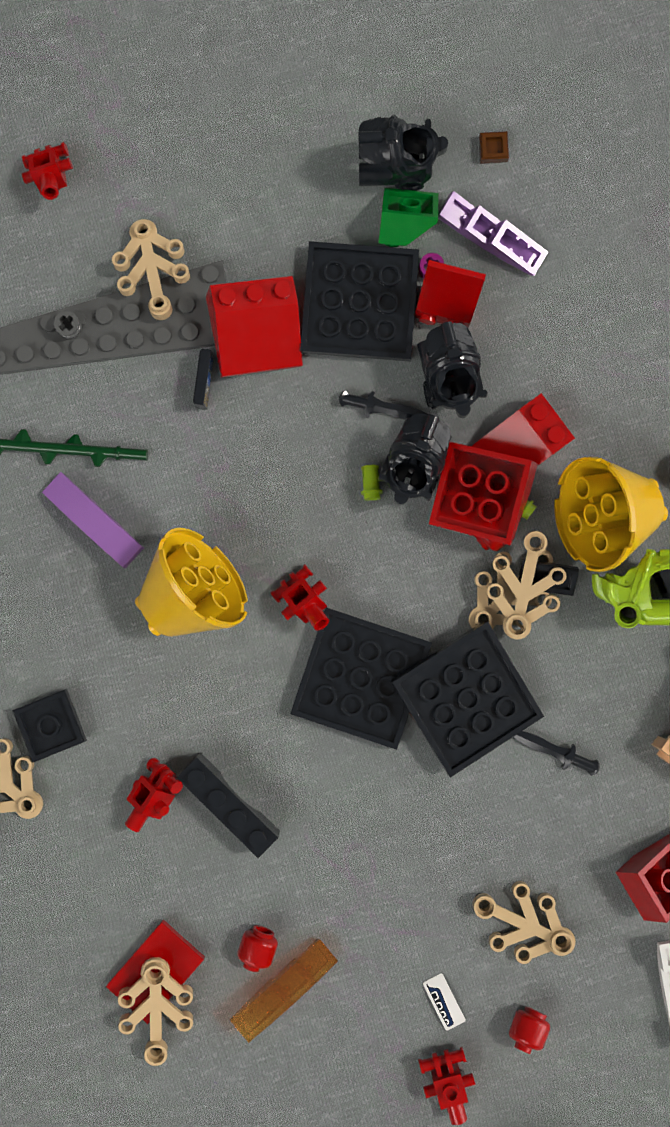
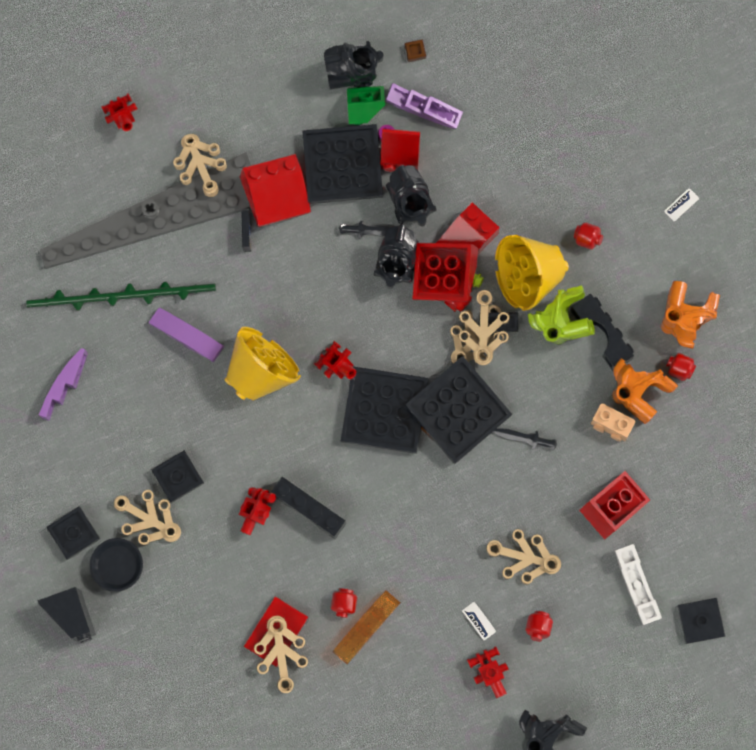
camera: 10 degrees left, 10 degrees down
(371, 487) = (369, 279): lime pin -> none

